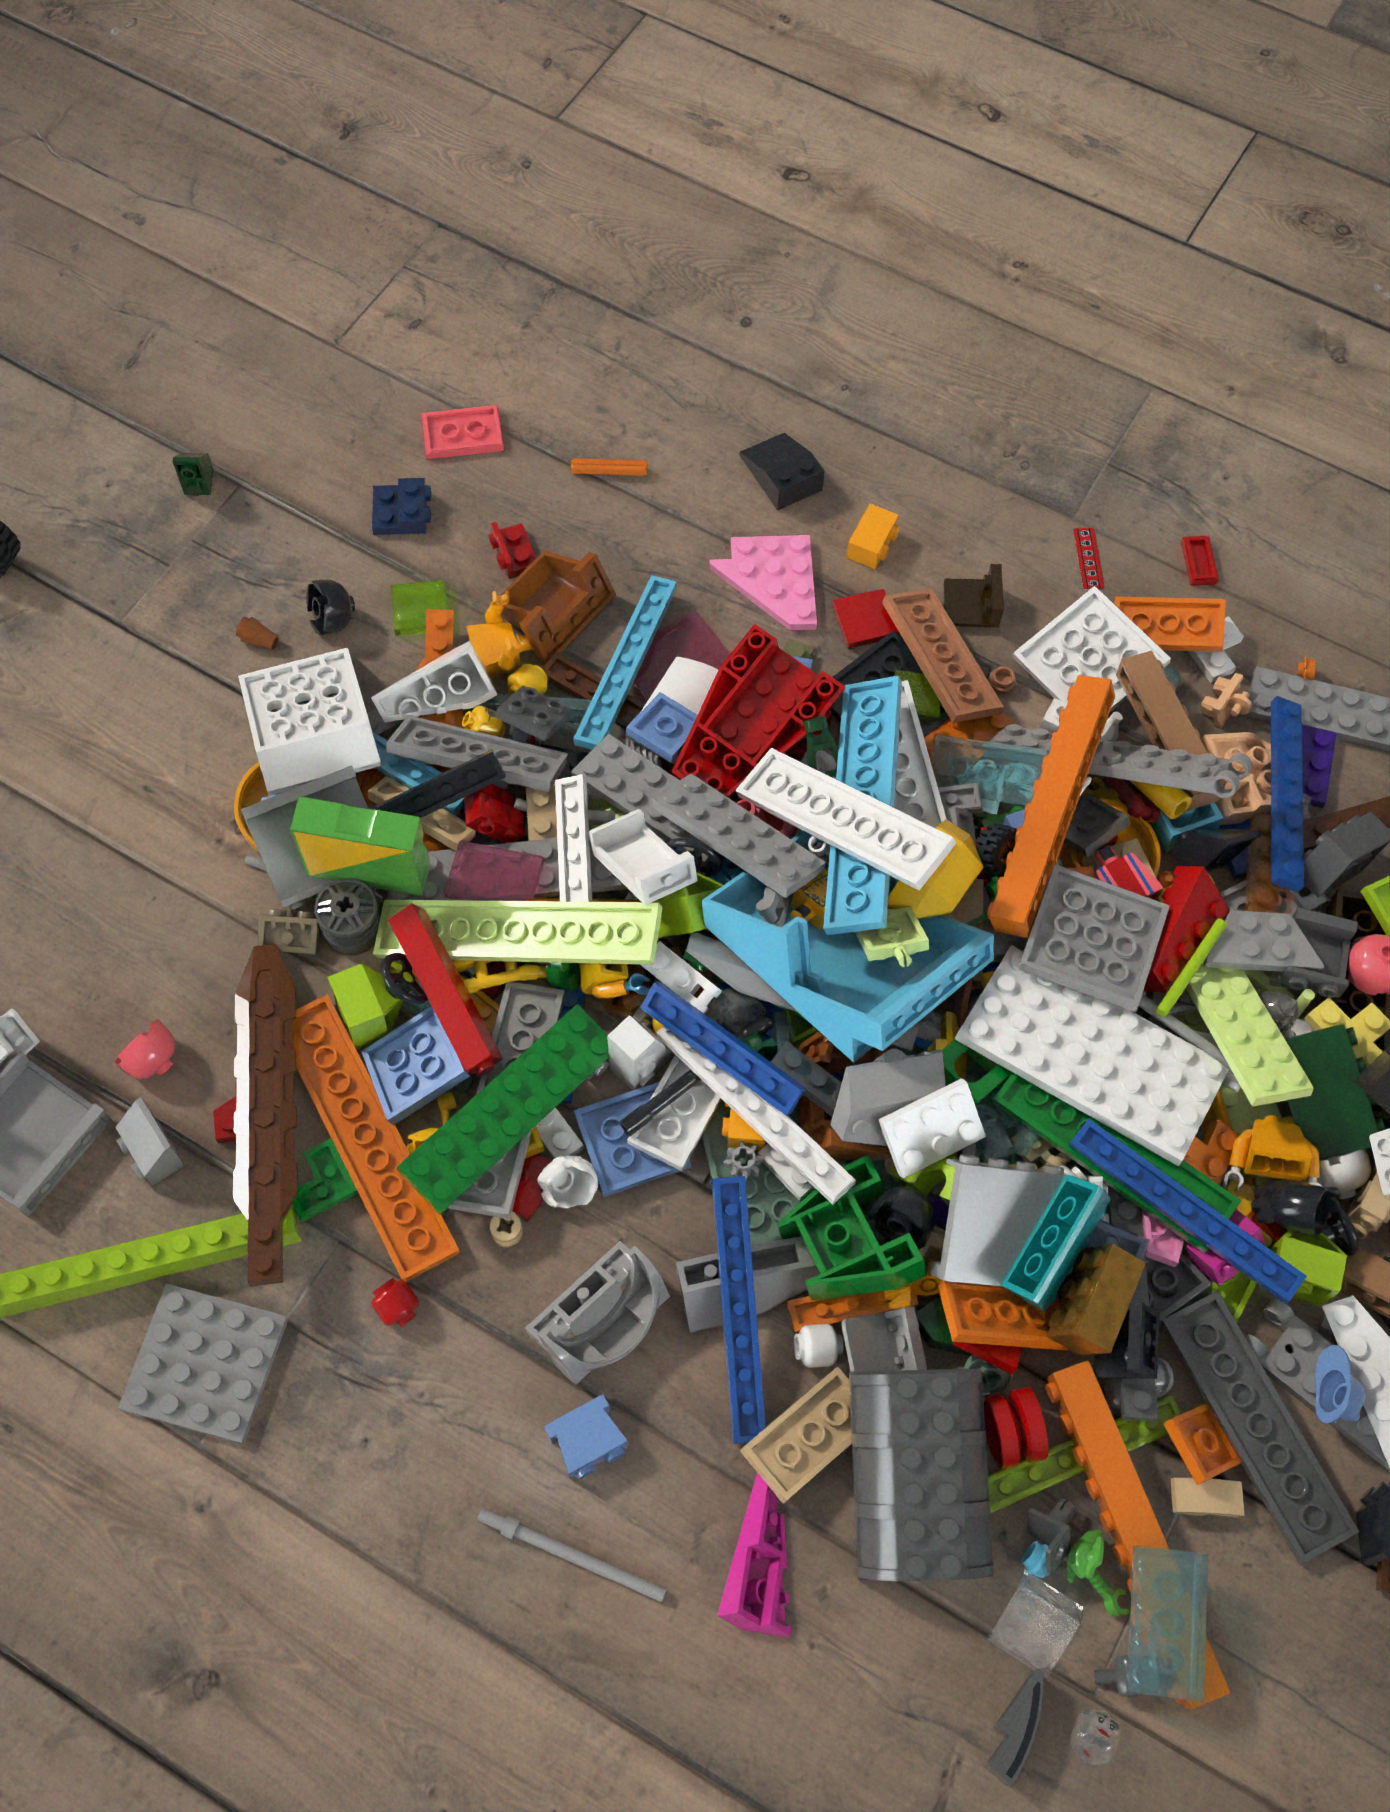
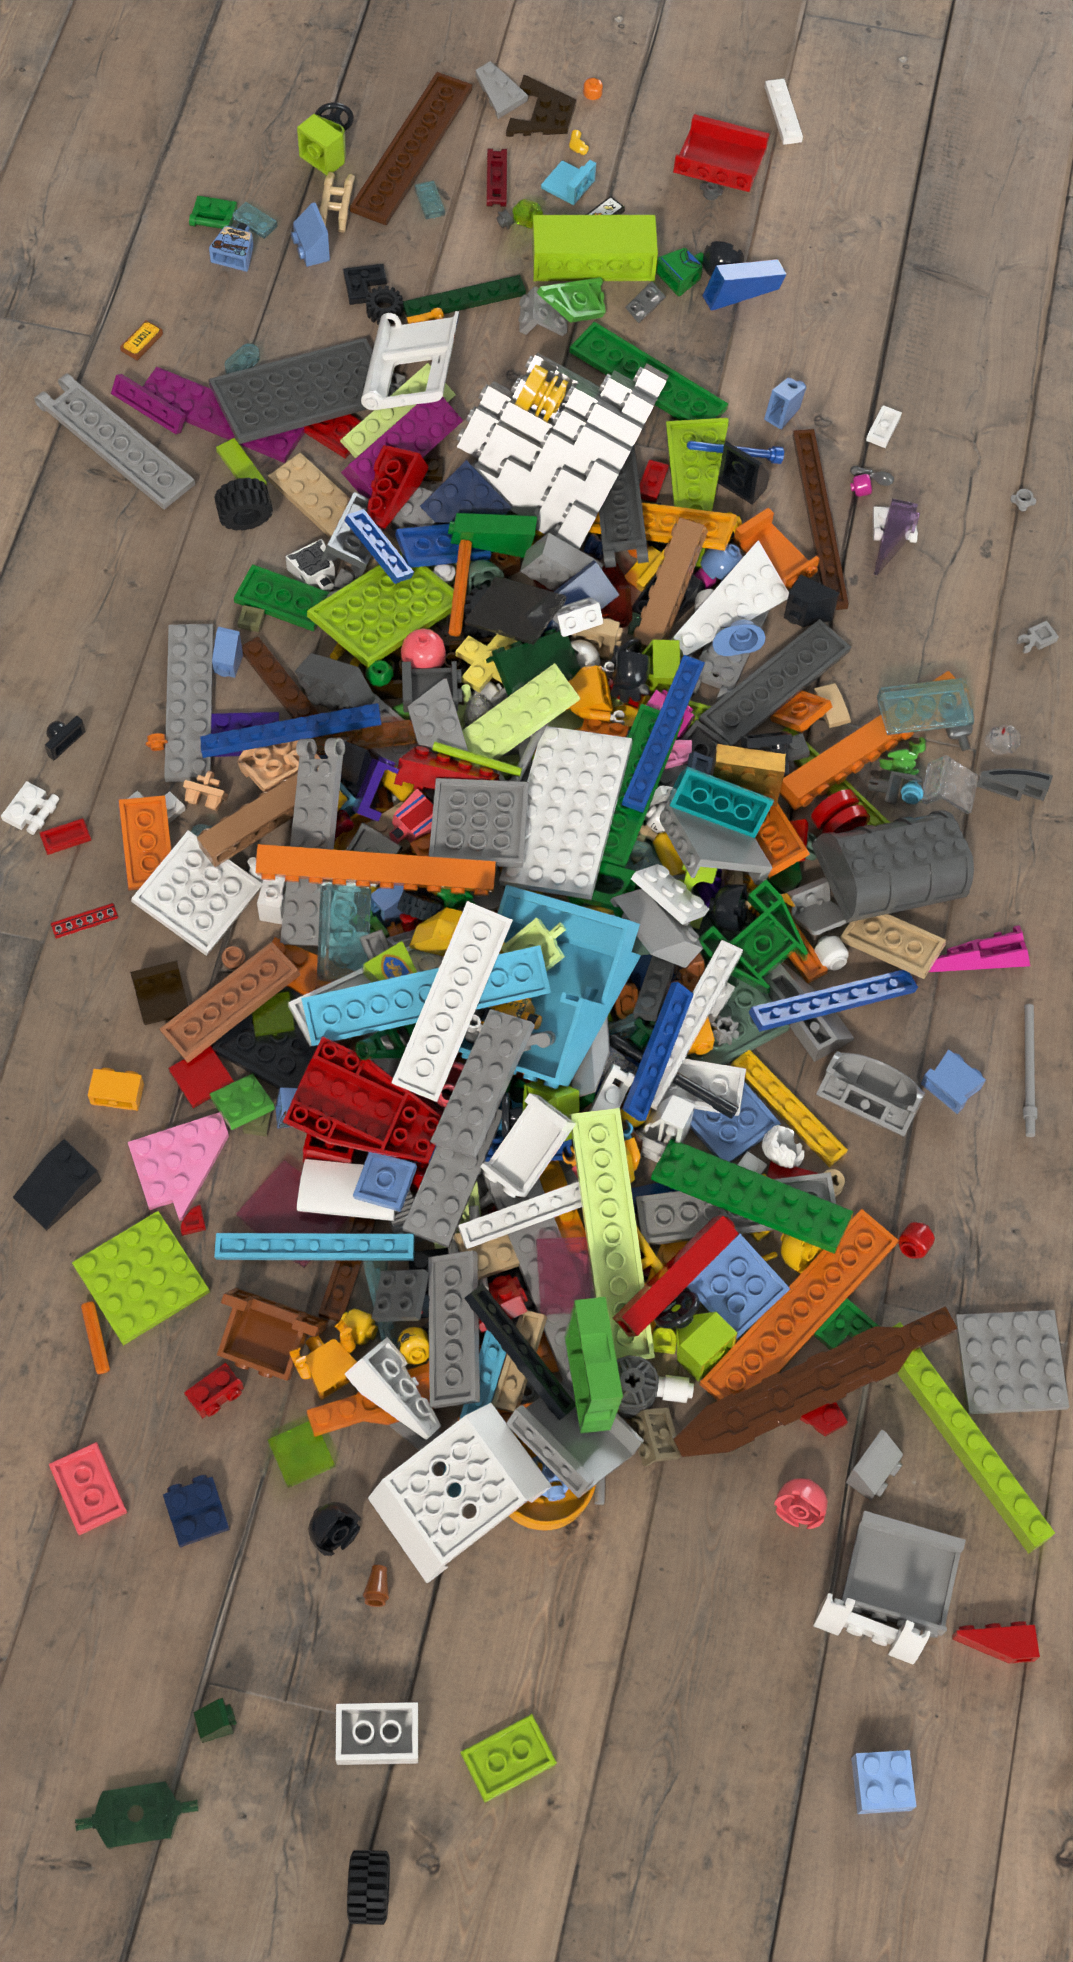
camera: 110 degrees left, 0 degrees up
(42, 702) = (508, 1758): none -> lime tile
(115, 592) = (376, 1733): none -> white brick
(150, 418) = (157, 1823): none -> clear green plate
(331, 962) = (675, 1388): none -> white brick
(623, 1218) = (790, 1109): none -> yellow tile
(658, 518) = (140, 1277): none -> lime plate
(702, 575) = (193, 1221): none -> red tile
(821, 640) = (242, 1101): none -> bright green plate
(918, 787) = (389, 964): none -> torso
(1154, 831) = (369, 787): none -> dark purple panel
(1247, 531) = (24, 806): none -> white plate
(1331, 580) = (63, 736): none -> black tile
(1344, 906) = (382, 678): none -> green plate

